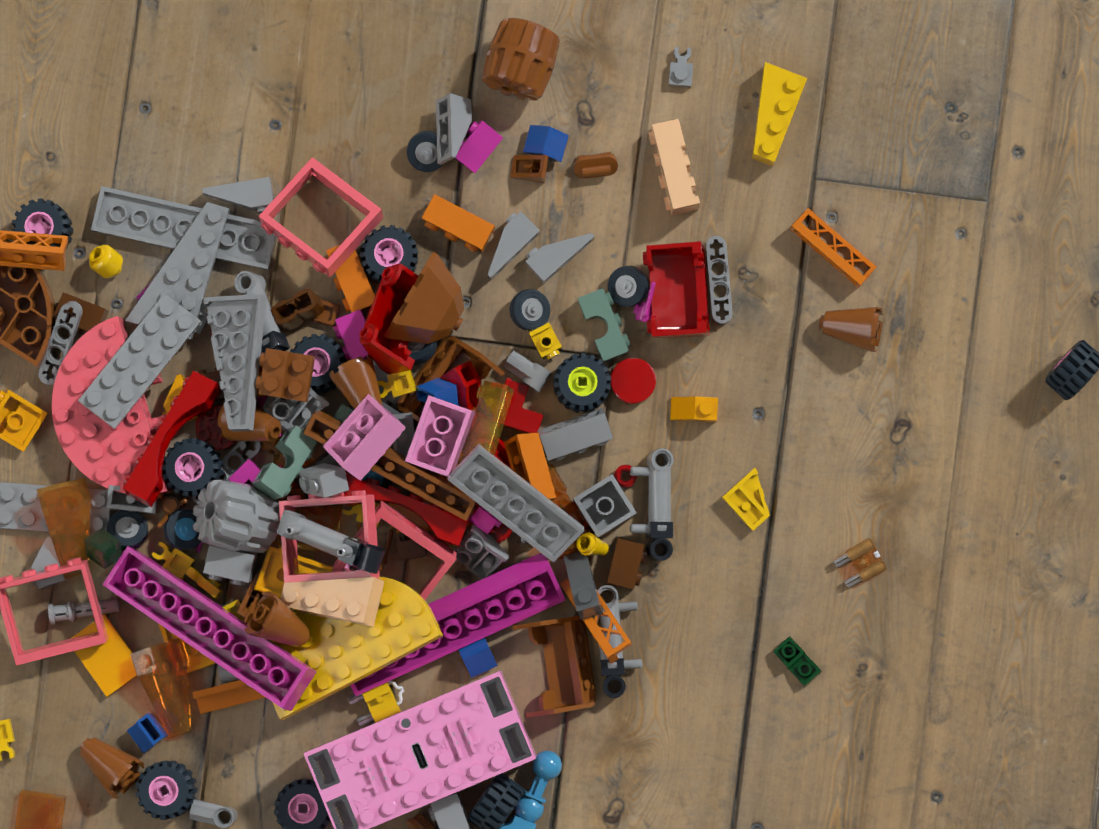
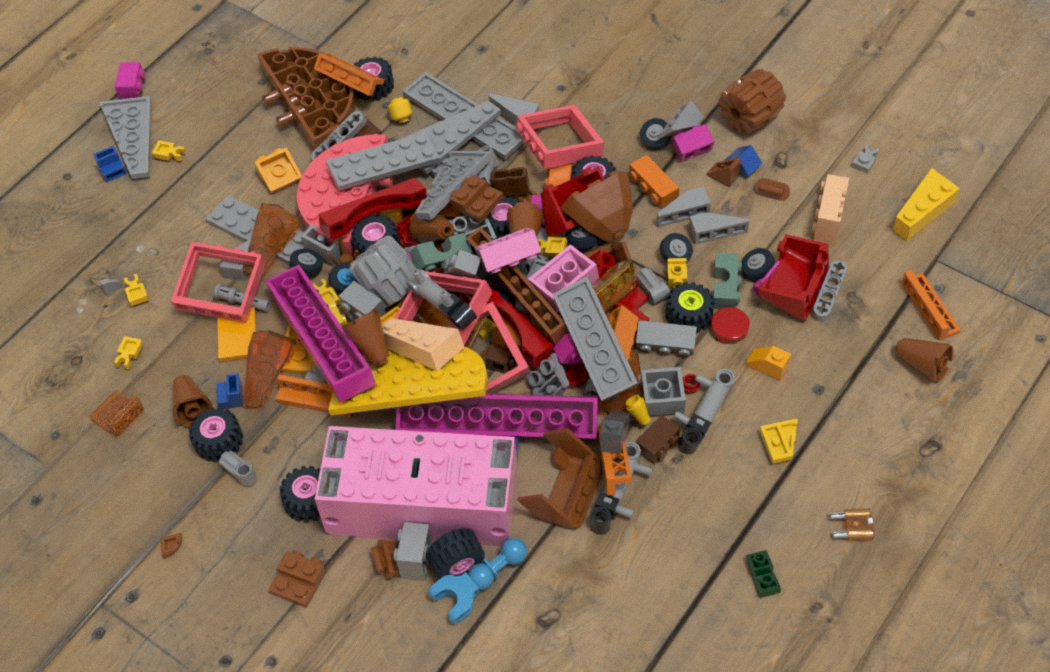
camera: 30 degrees right, 30 degrees down
(103, 548) = (281, 259): brick -> none

